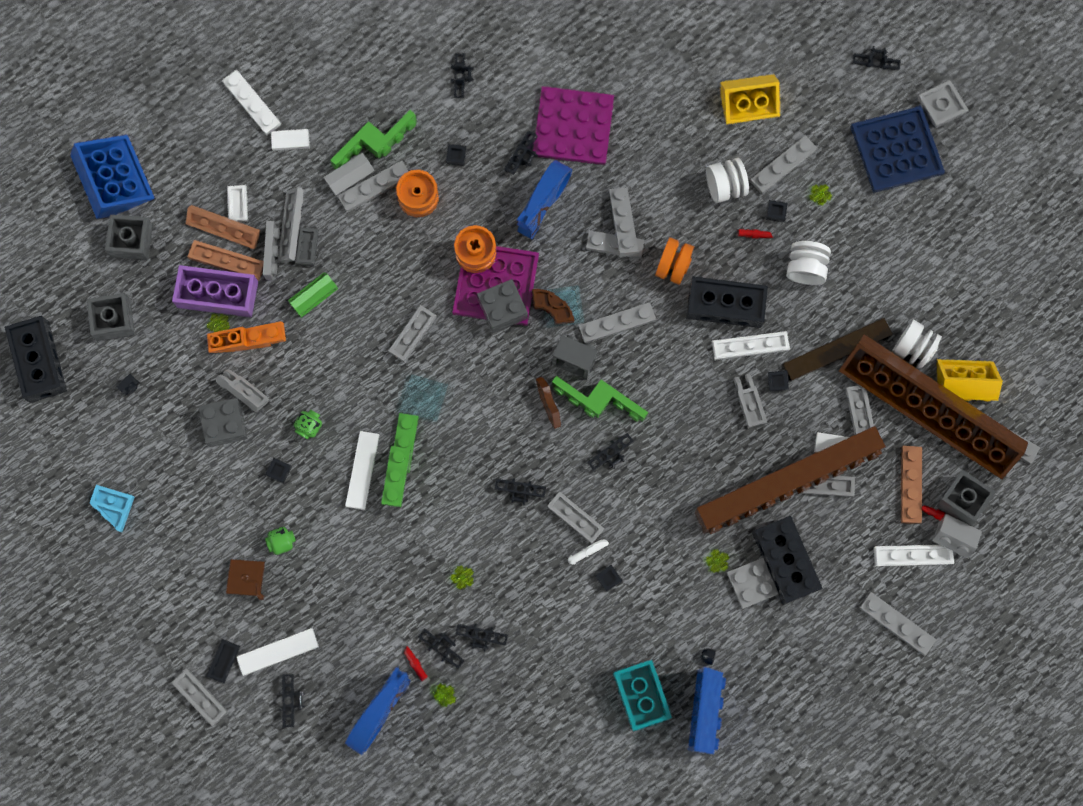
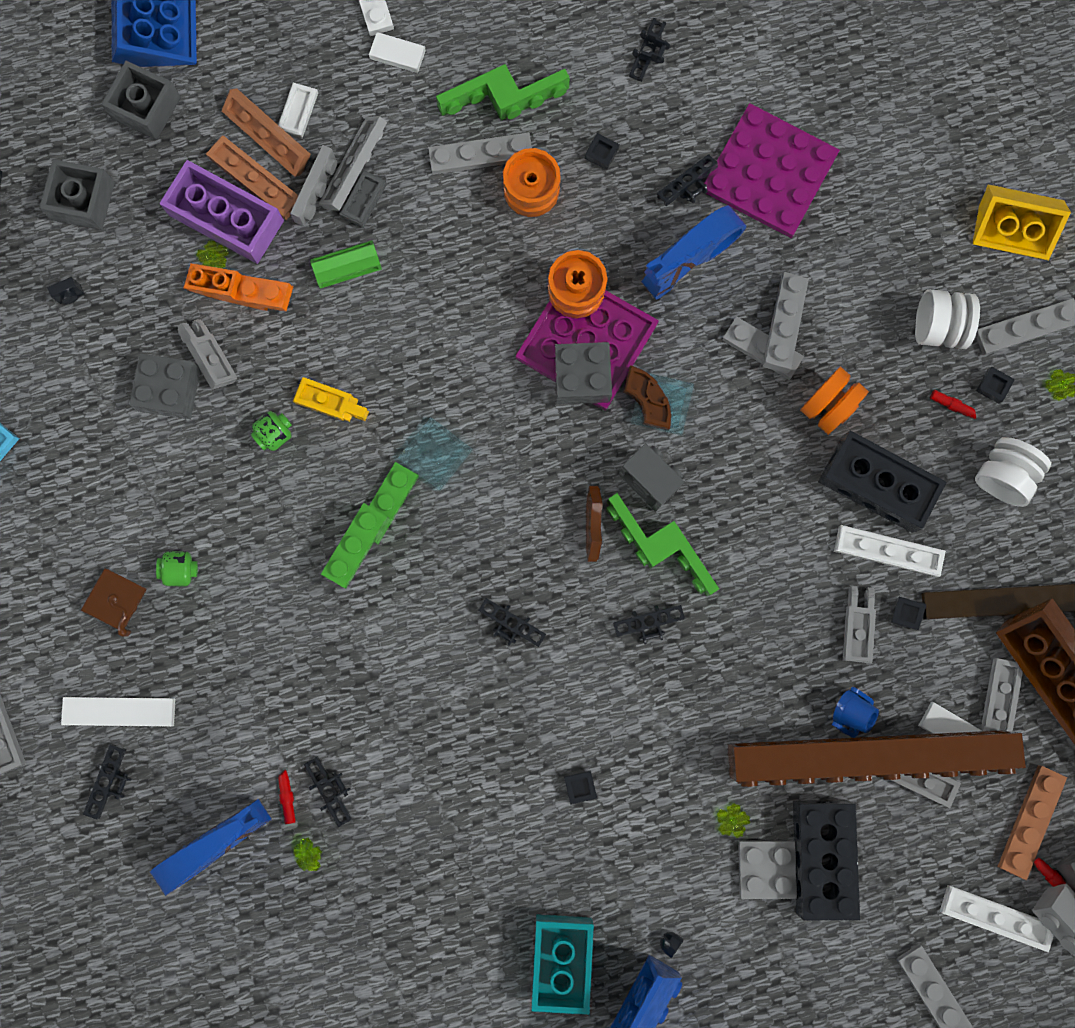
camera: 20 degrees right, 5 degrees up
(223, 661) = (44, 696): black tile -> none
(278, 470) = (211, 476): black plate -> none
(338, 390) = (329, 401): none -> yellow hinge
(348, 174) = (453, 124): light grey piece -> none
(362, 470) = (318, 518): white tile -> none
(412, 333) = (453, 364): light grey plate -> none
(462, 576) = (392, 708): clear neon green plant -> none
(475, 636) = (377, 796): black piece -> none
(575, 517) = (569, 690): light grey plate -> none
(585, 552) = (570, 739): white piece -> none
(617, 323) = (725, 453): light grey plate -> none
(768, 457) = (856, 712): none -> blue piece

